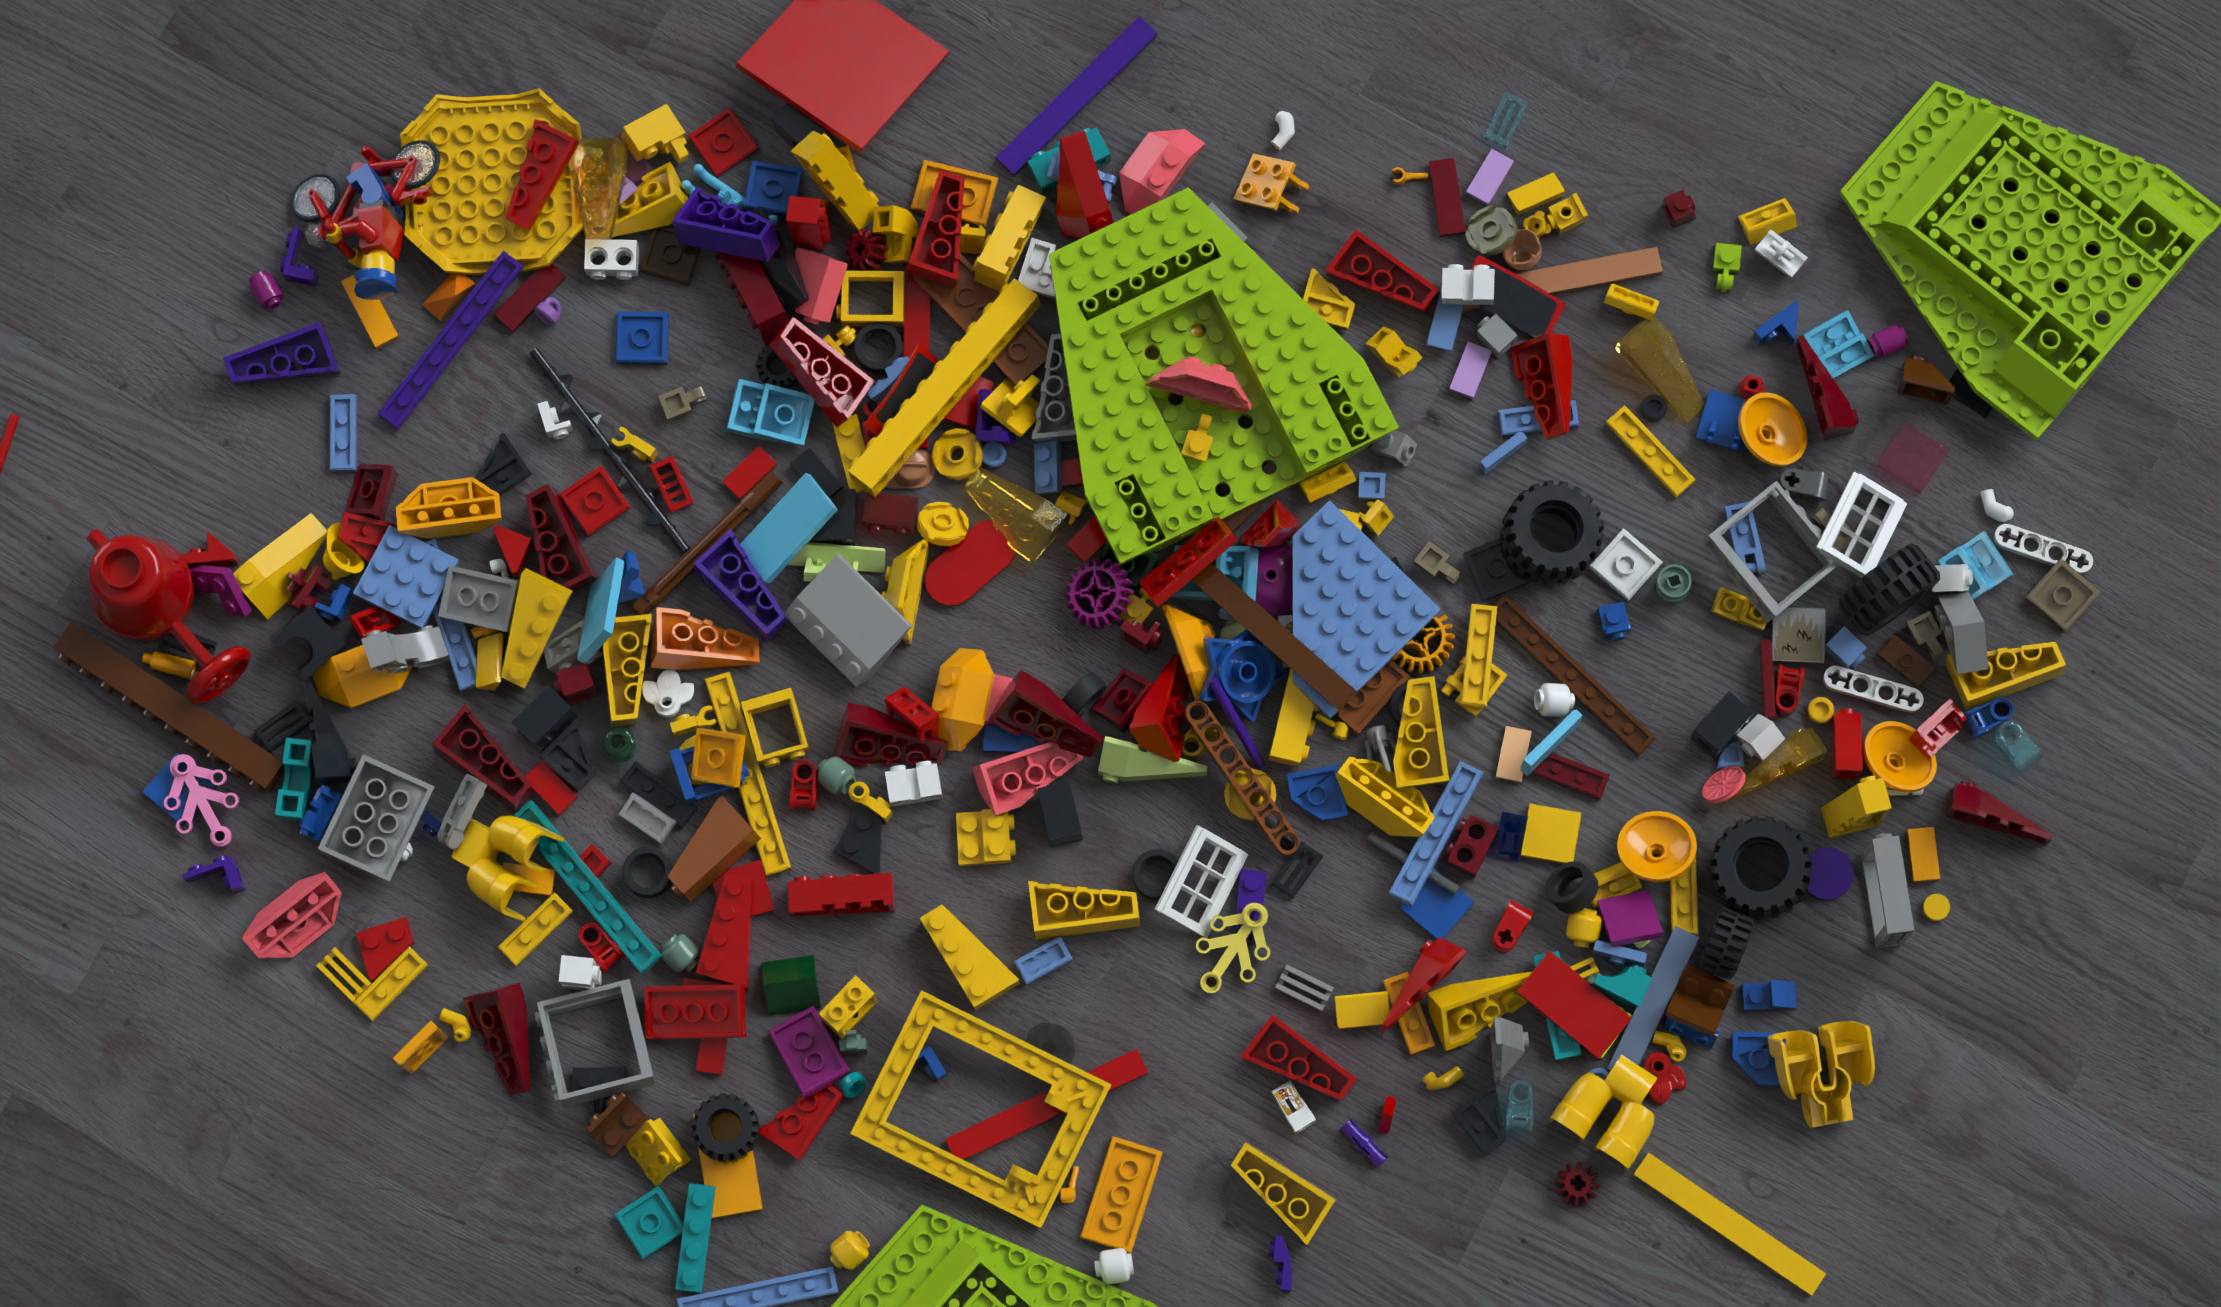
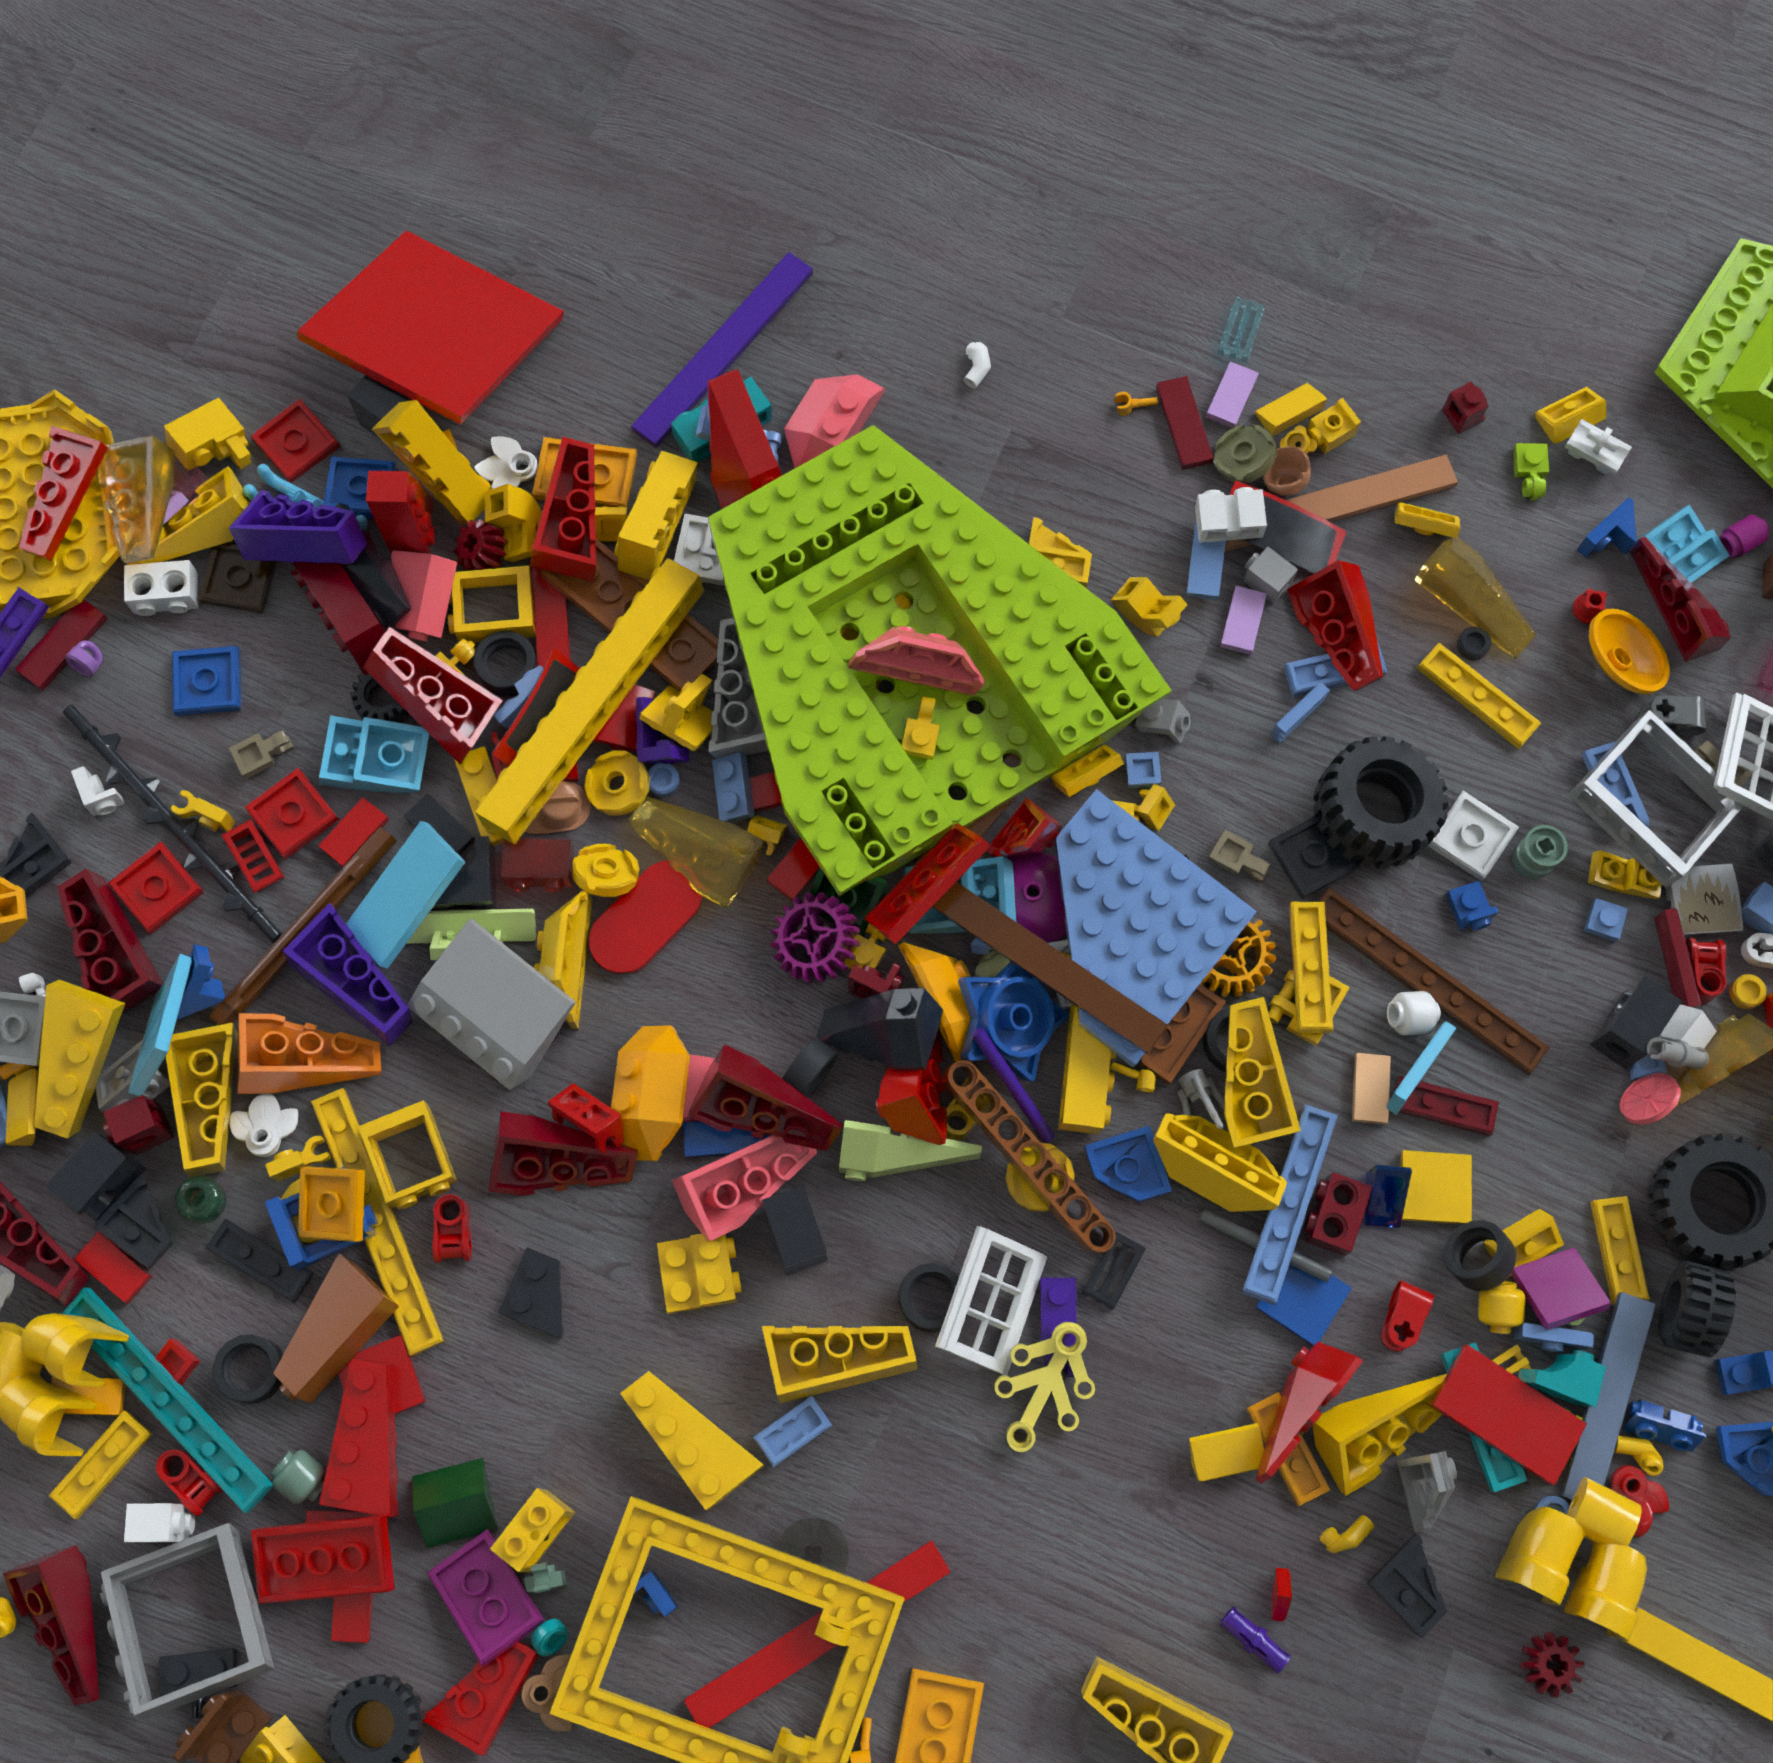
camera: 15 degrees left, 5 degrees down
(515, 548) = (50, 956): red slope -> none
(647, 818) = (244, 1294): light grey plate -> none
(703, 453) = (291, 813): none -> red plate
(835, 775) = (493, 1211): sand green head -> none
(842, 895) = (513, 1371): red wedge -> none
(851, 1114) = (550, 1679): none -> medium nougat plate
(877, 806) = (553, 1246): yellow plate -> none
(888, 181) = (503, 465): none -> white plate
(913, 784) = (597, 1211): white brick -> none
(1122, 699) = (855, 1080): dark red slope -> none
(1143, 669) = (885, 1027): none -> black wedge
(1265, 183) = (964, 424): light orange plate -> none
(1293, 1056) = (1144, 1528): red wedge -> none
(1293, 1107) = (1153, 1599): white leg -> none
(1324, 997) = (1172, 1439): light grey tile -> none
(1380, 273) = (1120, 514): red wedge -> none
(1520, 1108) = (1457, 1566): clear light blue piece -> none
(1657, 834) = (1584, 1174): light orange dish -> none
(1699, 1000) = (1672, 1389): reddish brown bracket -> none
(1719, 642) = (1605, 920): none -> medium blue plate
(1720, 421) = (1564, 650): blue plate -> none
(1744, 752) = (1677, 1053): none -> light grey pin

